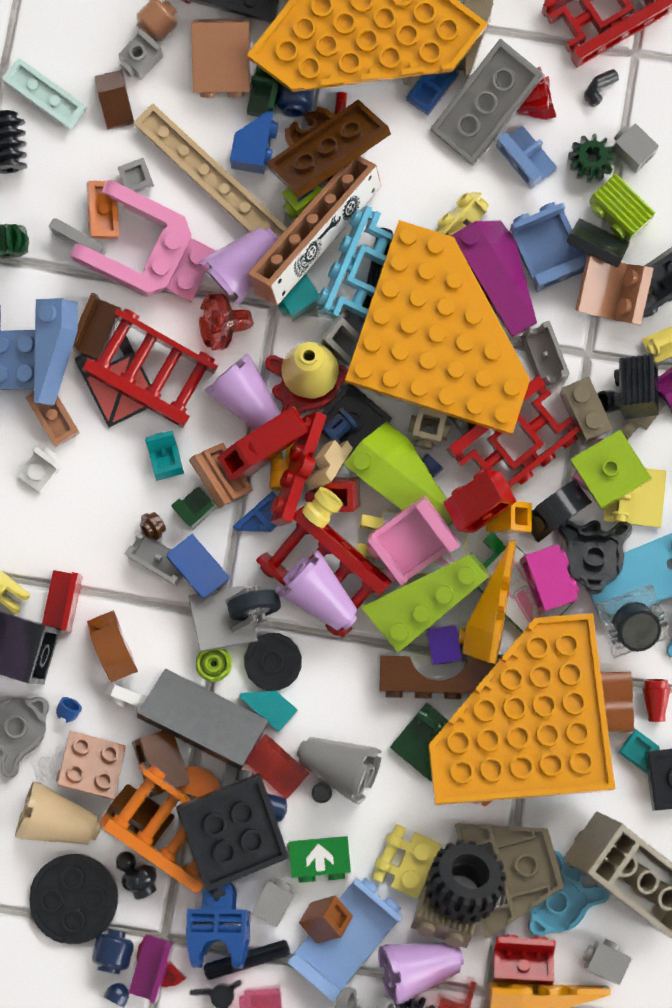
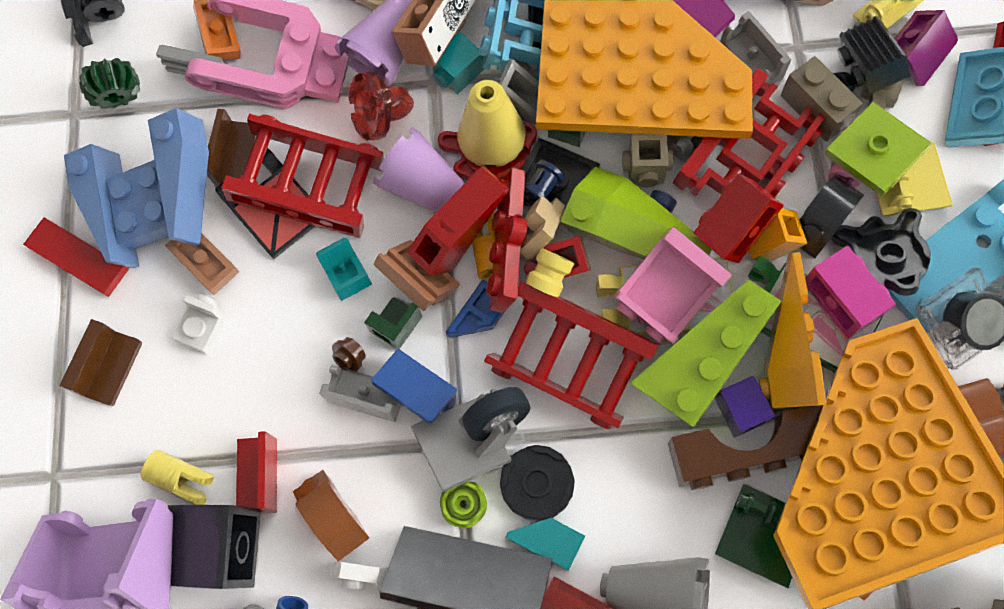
camera: 10 degrees left, 10 degrees down
(318, 592) = (574, 376): lavender cone -> none

